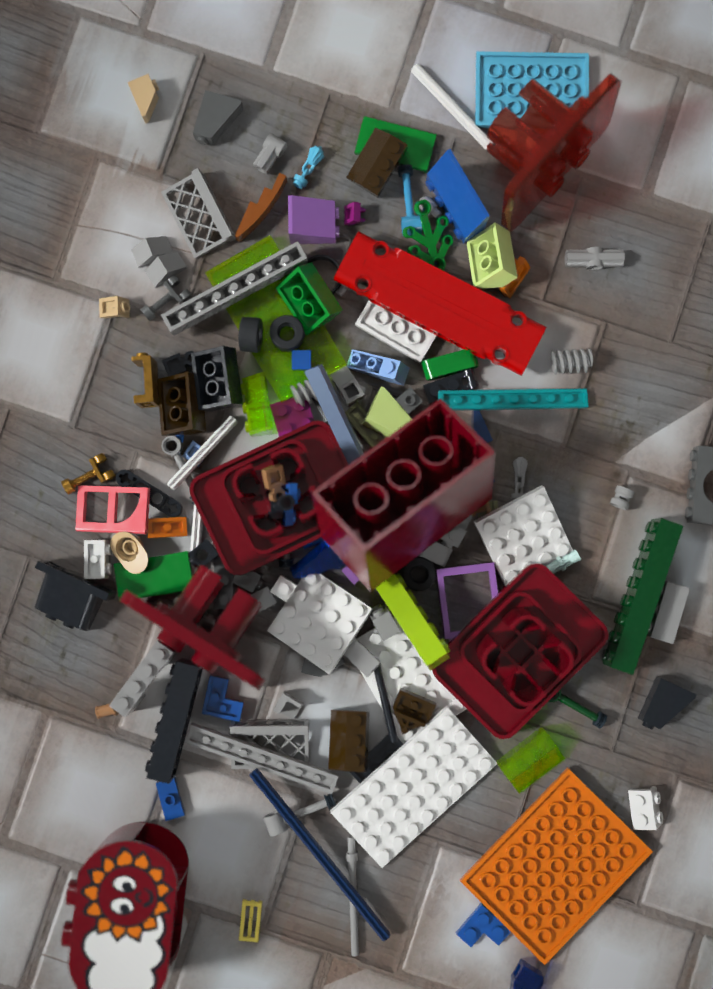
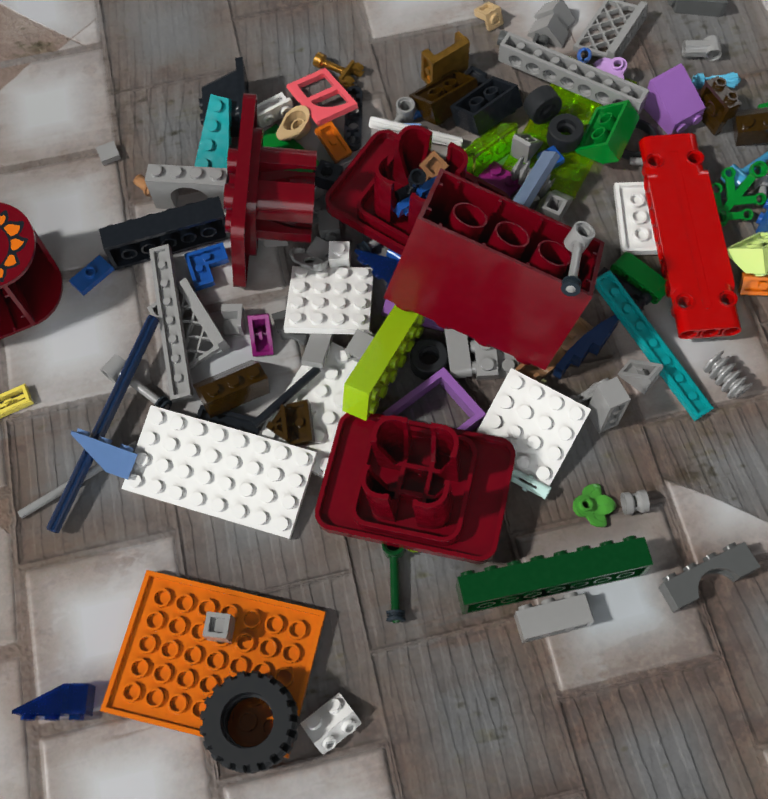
camera: 65 degrees right, 20 degrees down
(50, 724) = (108, 153): none -> light grey tile
(108, 630) = (215, 134): none -> teal wing
(217, 261) = (582, 50): none -> blue pin
(247, 254) = (608, 65): none -> lavender plate
(257, 212) = (647, 65): dark orange slope -> none
(262, 619) = (299, 256): none -> light grey piece
(277, 372) = (524, 145): none -> light grey slope
(318, 692) = (261, 334): none -> magenta slope
(339, 188) = (719, 103): none -> dark brown plate
(352, 214) = (707, 131): magenta tile -> none
(356, 867) = (111, 458): none -> medium blue slope
(378, 367) = (588, 211): light blue slope -> none
(438, 416) = (576, 242): none -> light grey piece
(481, 922) = (113, 620): blue plate -> none
(529, 423) = (640, 374): none -> light grey slope
(530, 760) = (310, 569): clear neon green slope -> none
(541, 853) = (219, 627): none -> light grey panel
(546, 471) = (608, 404): none -> light grey brick
(607, 524) = (597, 505): none -> bright green plate
(639, 885) = (216, 716): none -> black tyre
(664, 703) = (456, 672): black slope -> none

